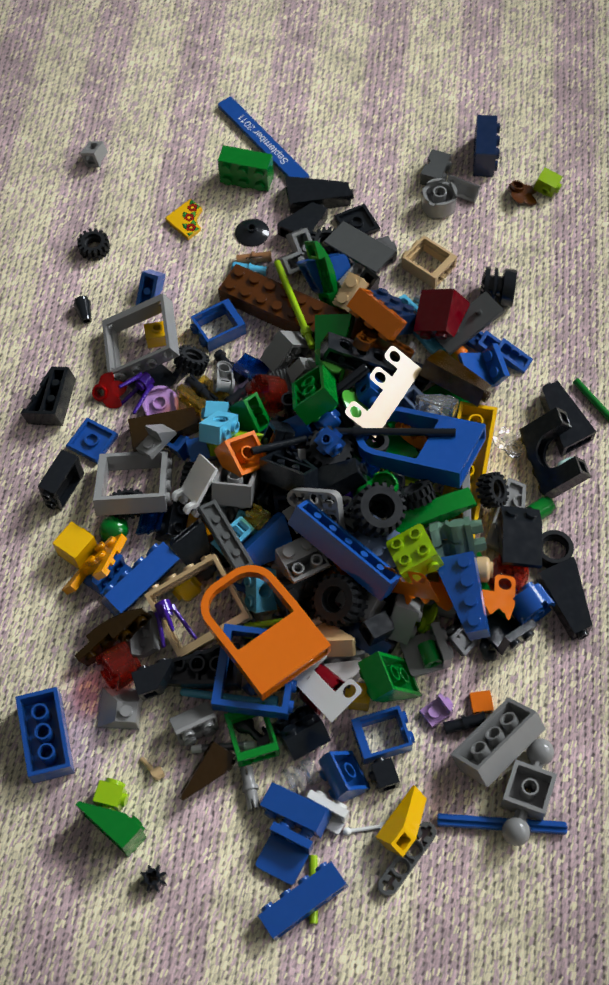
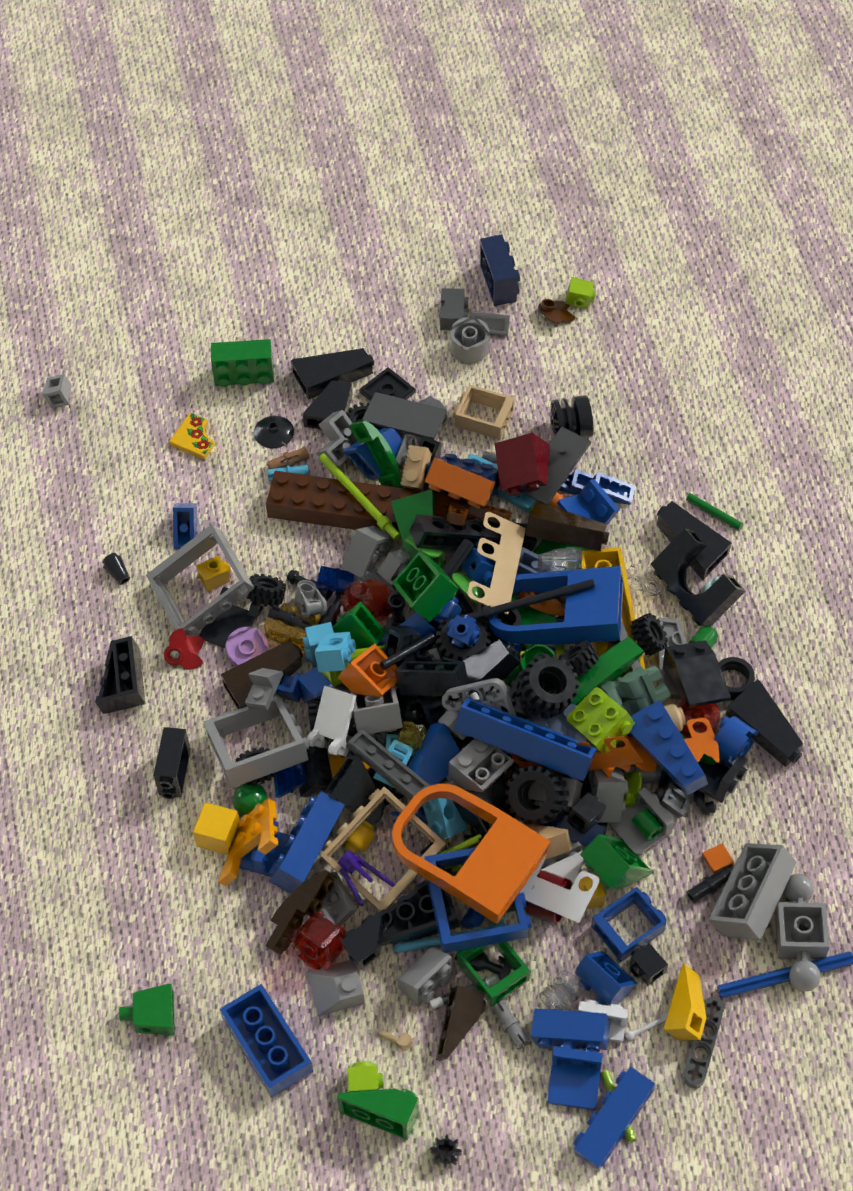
camera: 20 degrees left, 5 degrees down
(92, 440) = (185, 710): blue tile -> none
(93, 236) = (98, 502): black tyre -> none
(144, 382) = (221, 628): dark purple plant -> none
(222, 308) = (278, 523): blue window -> none
(261, 138) = (242, 324): blue tile -> none
(301, 732) = (545, 948): black slope -> none
(437, 711) = (676, 881): lavender bracket -> none

